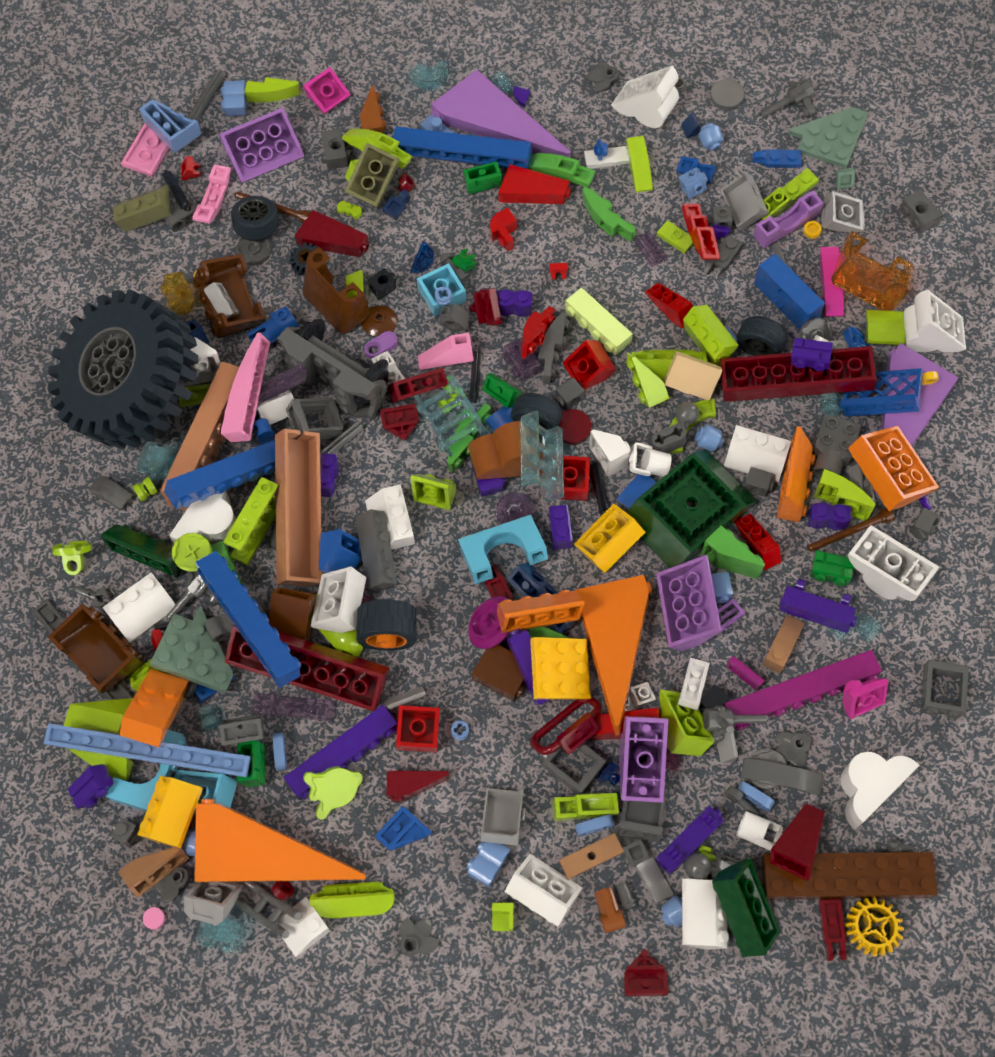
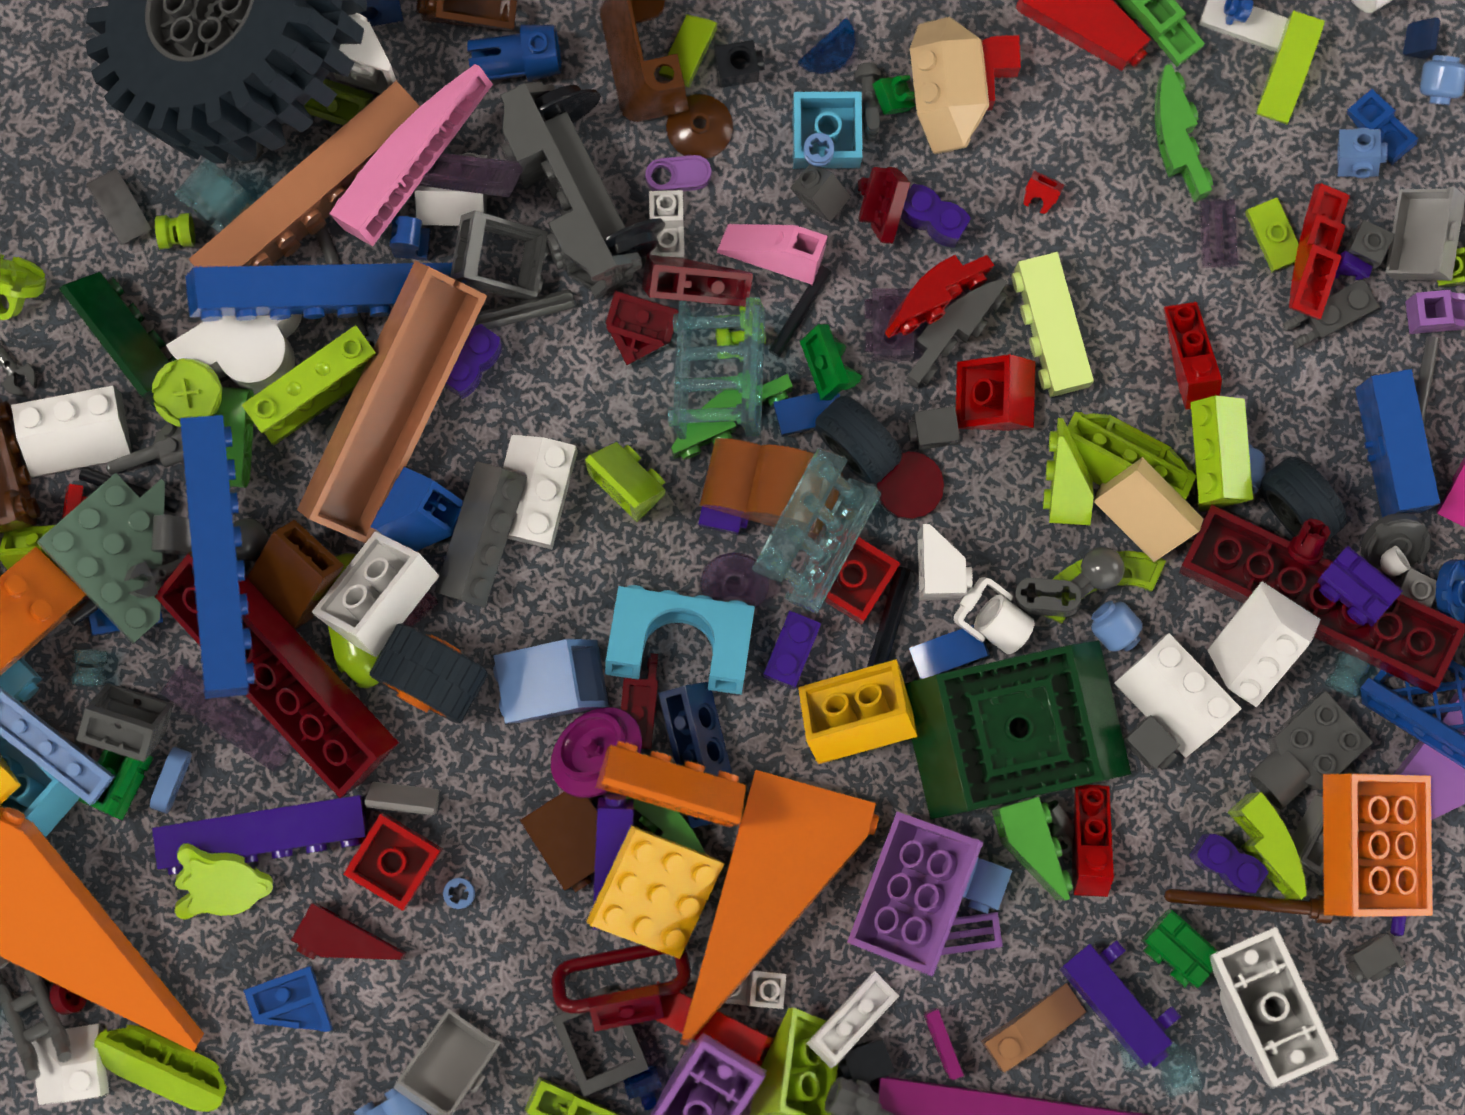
camera: 20 degrees right, 15 degrees up
(220, 659) = (153, 577): none -> dark grey bar
(448, 602) = (550, 680): none -> medium blue slope
(488, 243) = (948, 83): none -> tan wedge
(776, 347) = (1309, 544): none -> dark red bush
(781, 405) = (1262, 643): none -> white slope
(795, 478) = (1211, 774): orange slope -> none

